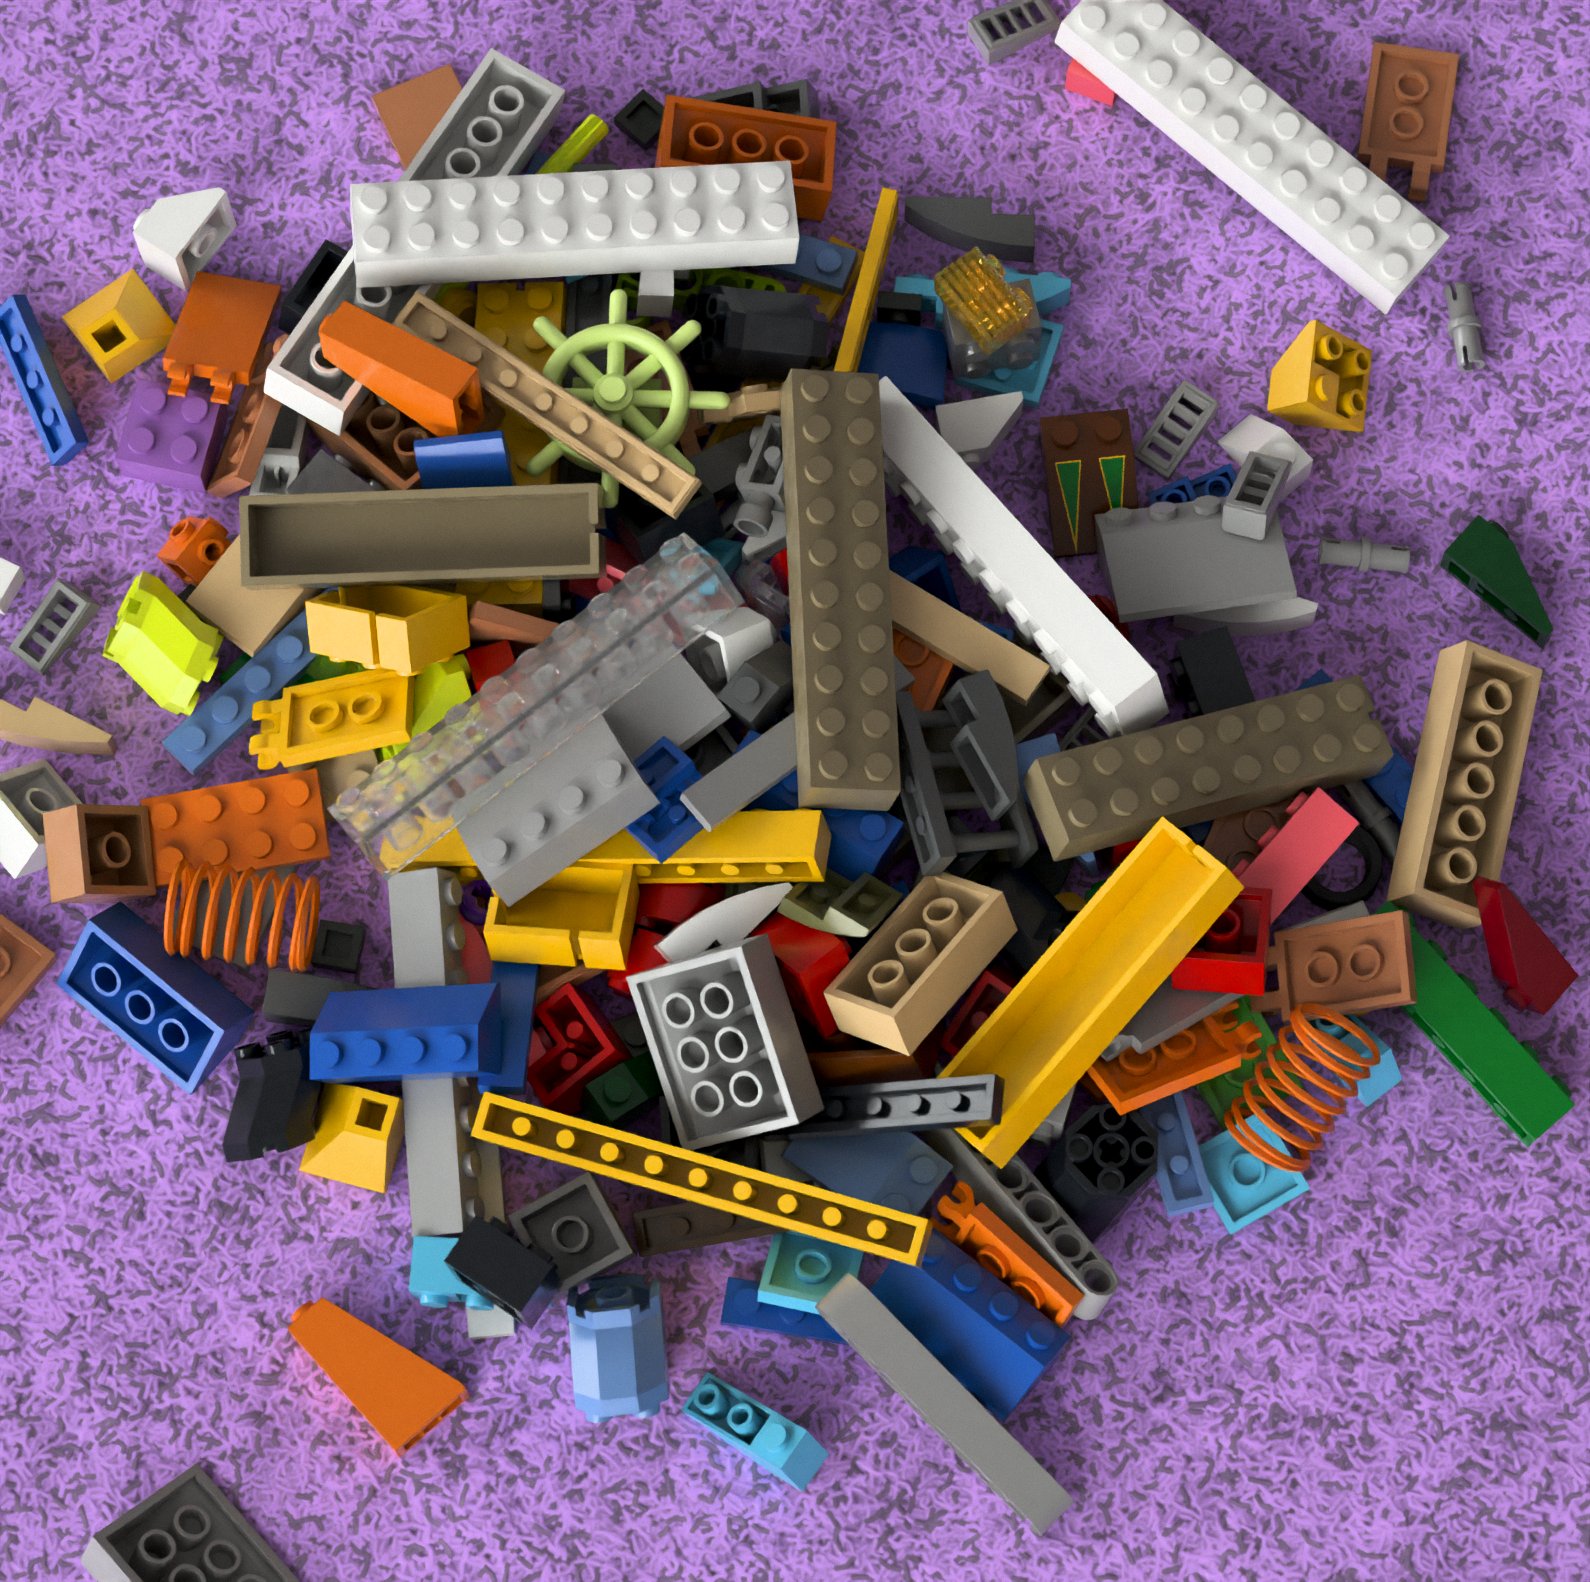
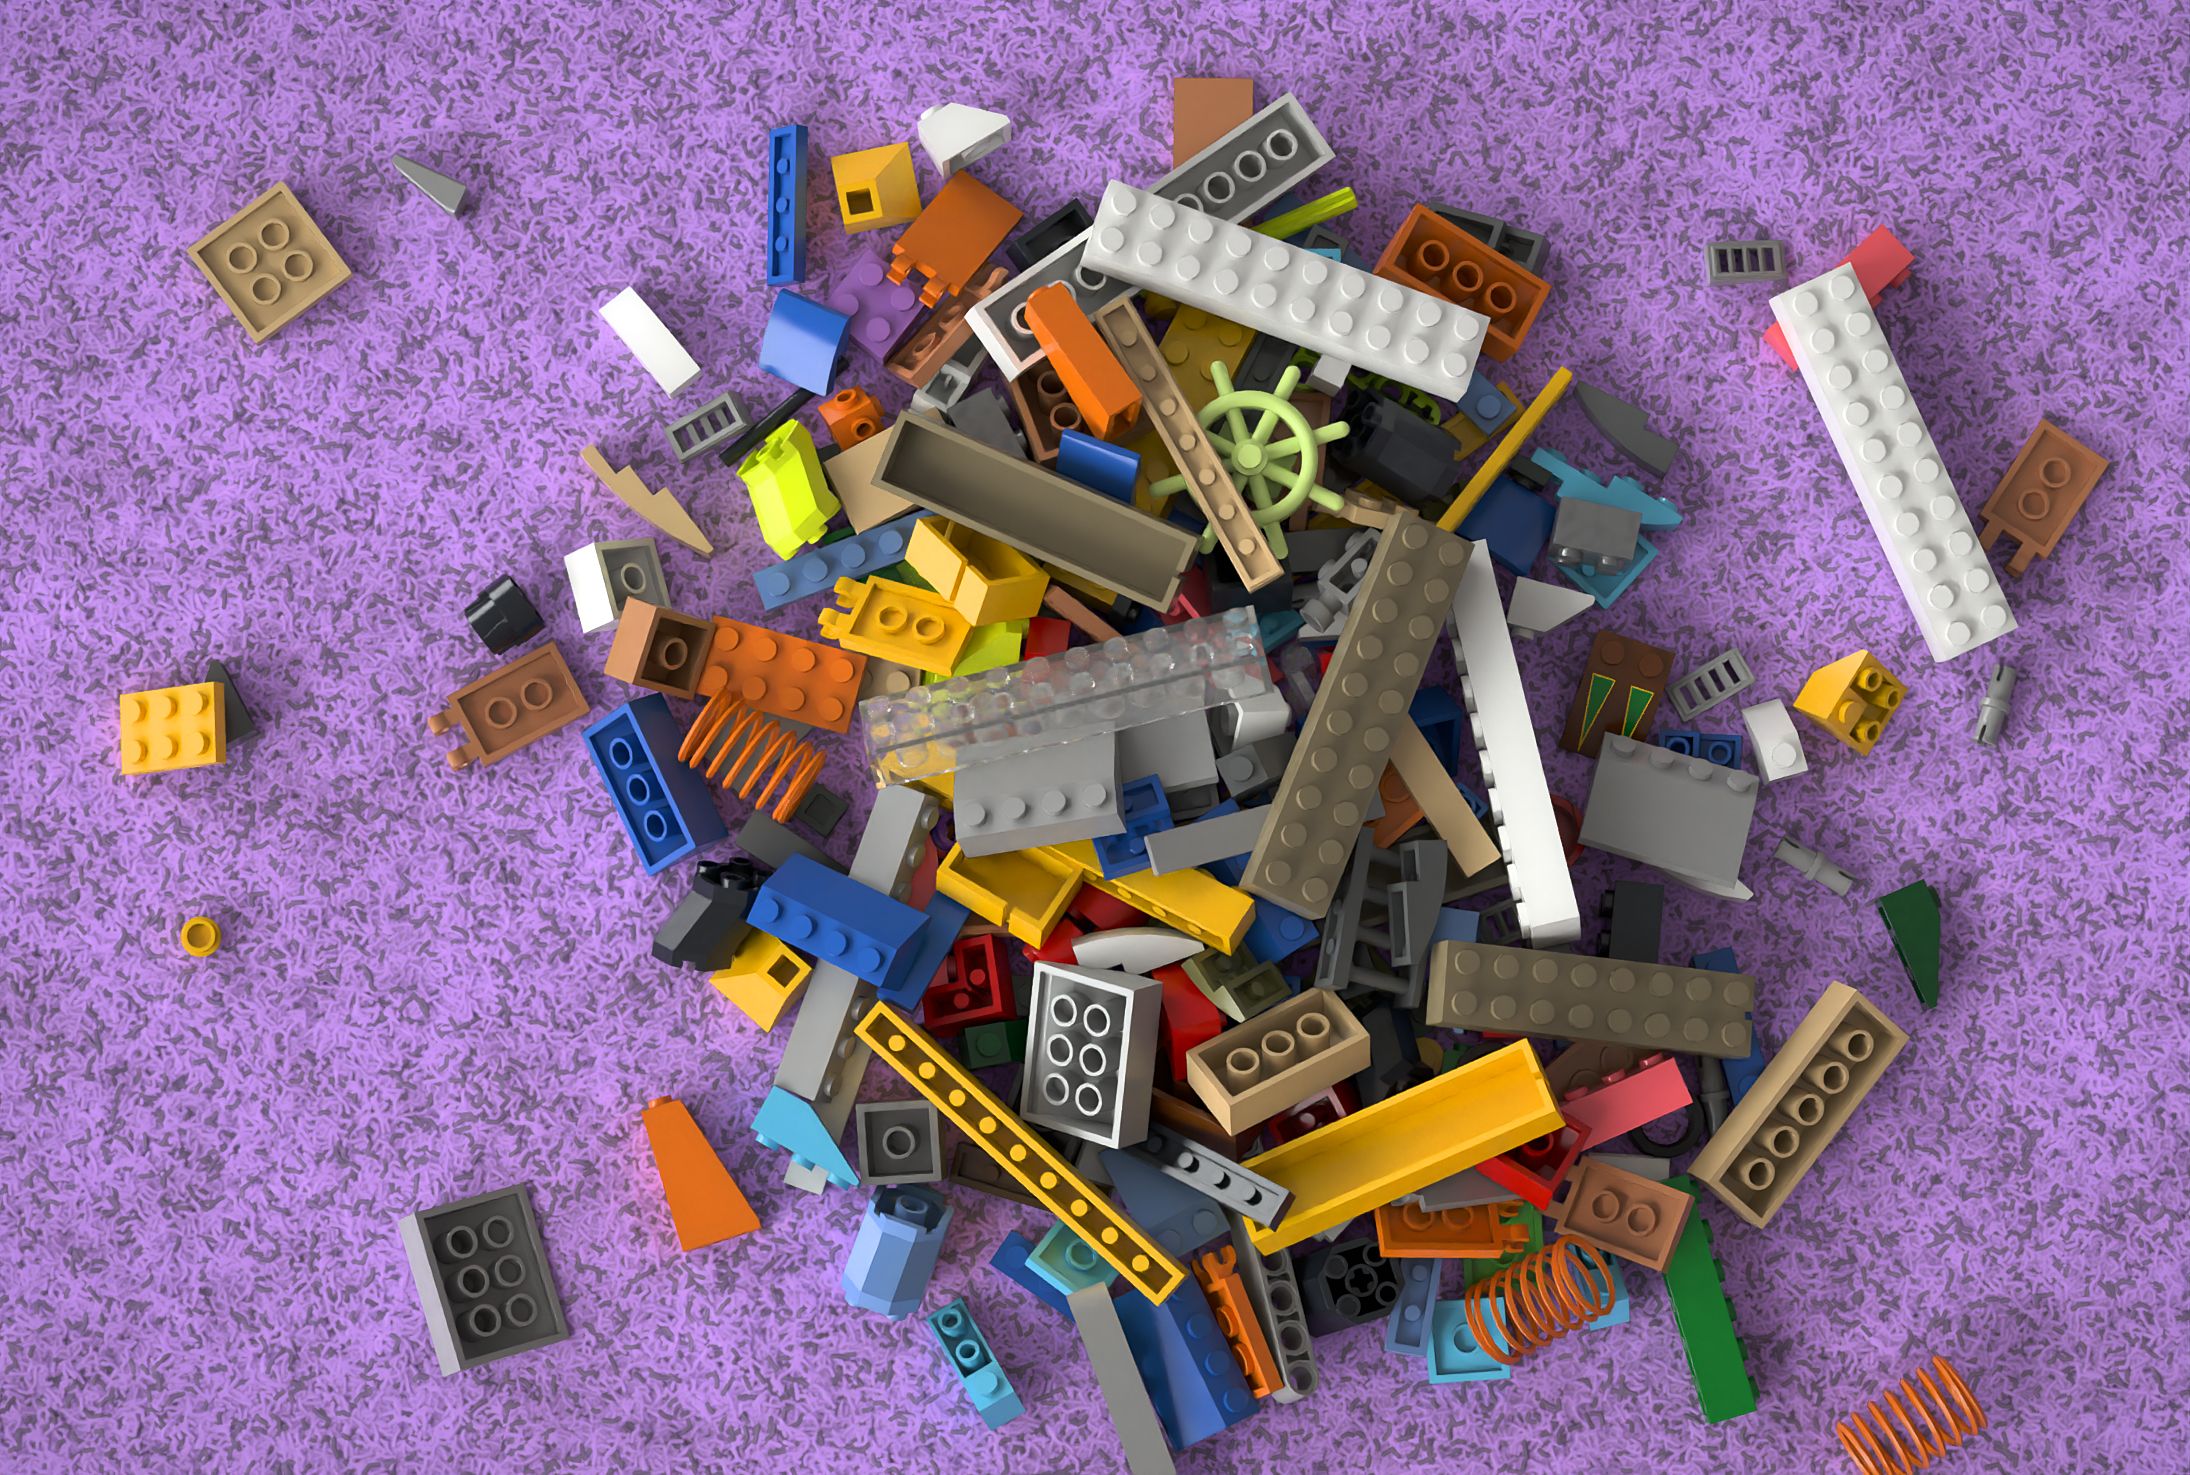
camera: 20 degrees right, 10 degrees up
(114, 497) = (804, 342): none -> slope
(124, 578) = (772, 421): none -> black bar
(504, 1271) = (830, 1155): black brick -> none
(641, 119) = (1392, 204): pearl dark grey plate -> none
(983, 299) = (1593, 518): clear yellow brick -> none
(1255, 497) = (1727, 799): light grey slope -> none
(1519, 951) = (1774, 1267): dark red slope -> none

